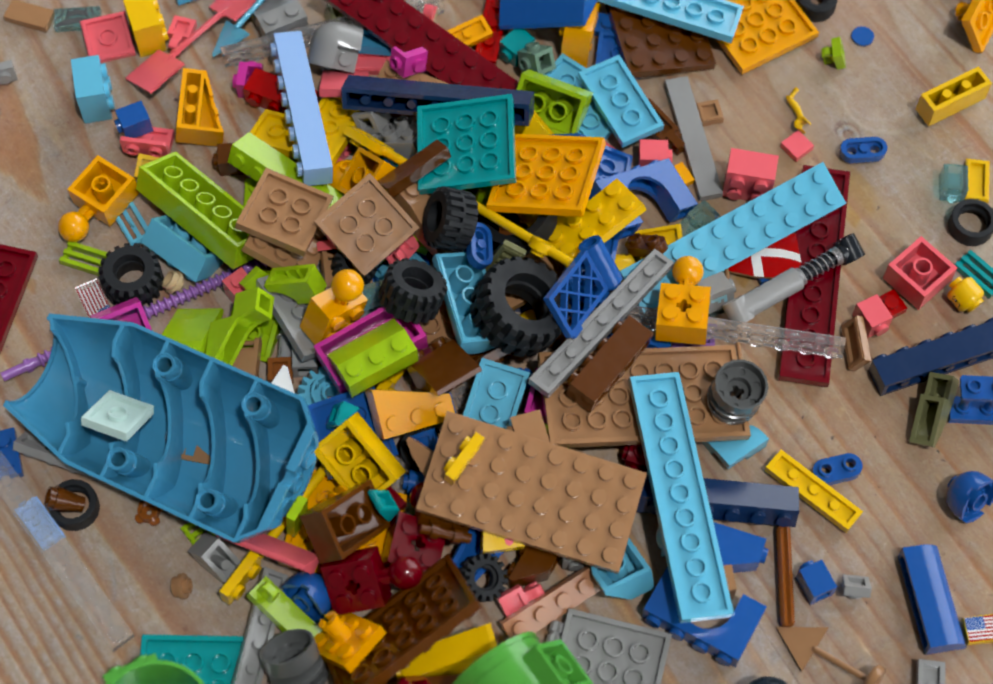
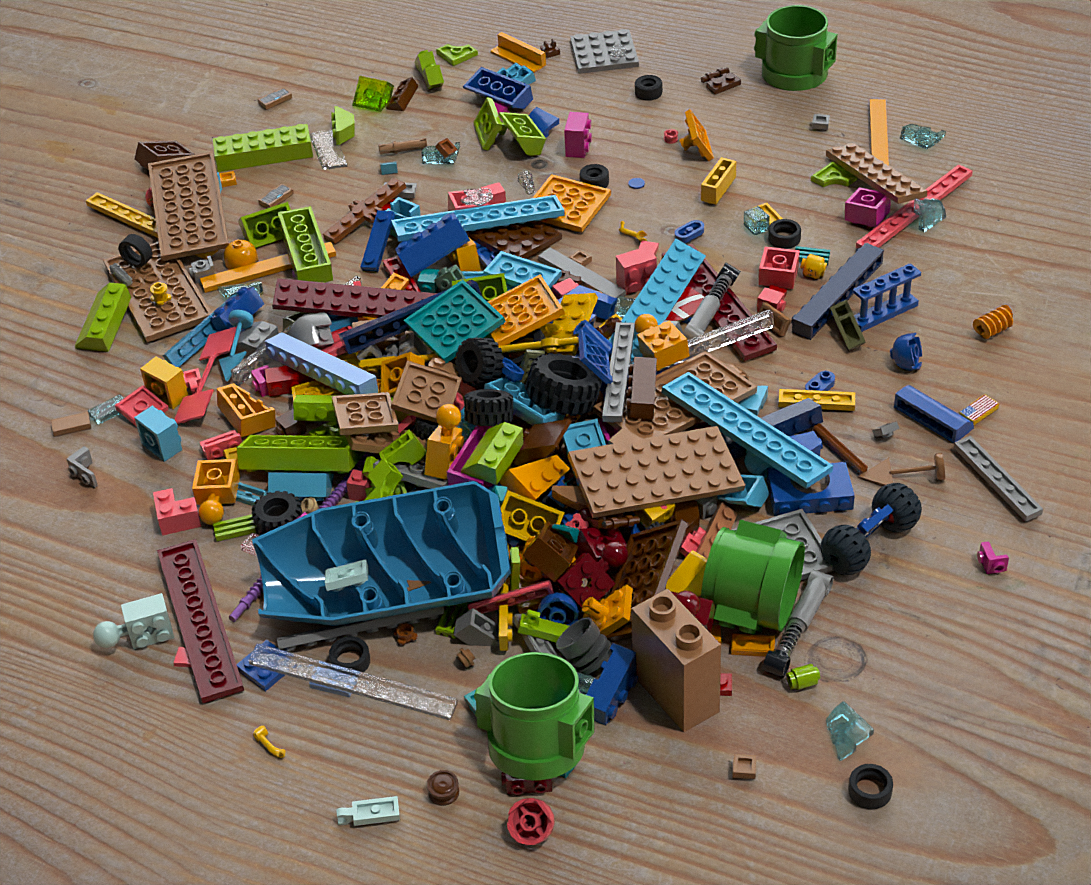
camera: 30 degrees left, 20 degrees down
(36, 201) = (175, 515): none -> coral brick
(63, 500) = (343, 650): reddish brown cone -> none
(133, 120) = (204, 432): blue brick -> none
(408, 62) = (369, 311): dark pink bracket -> none
(410, 500) = (577, 520): none -> coral plate
(415, 168) = (434, 345): reddish brown slope -> none
(456, 466) = (602, 471): yellow plate -> none
(742, 381) = (732, 362): dark grey wheel -> none
(815, 581) = (860, 439): blue brick -> none
(834, 54) = (629, 195): lime tile -> none

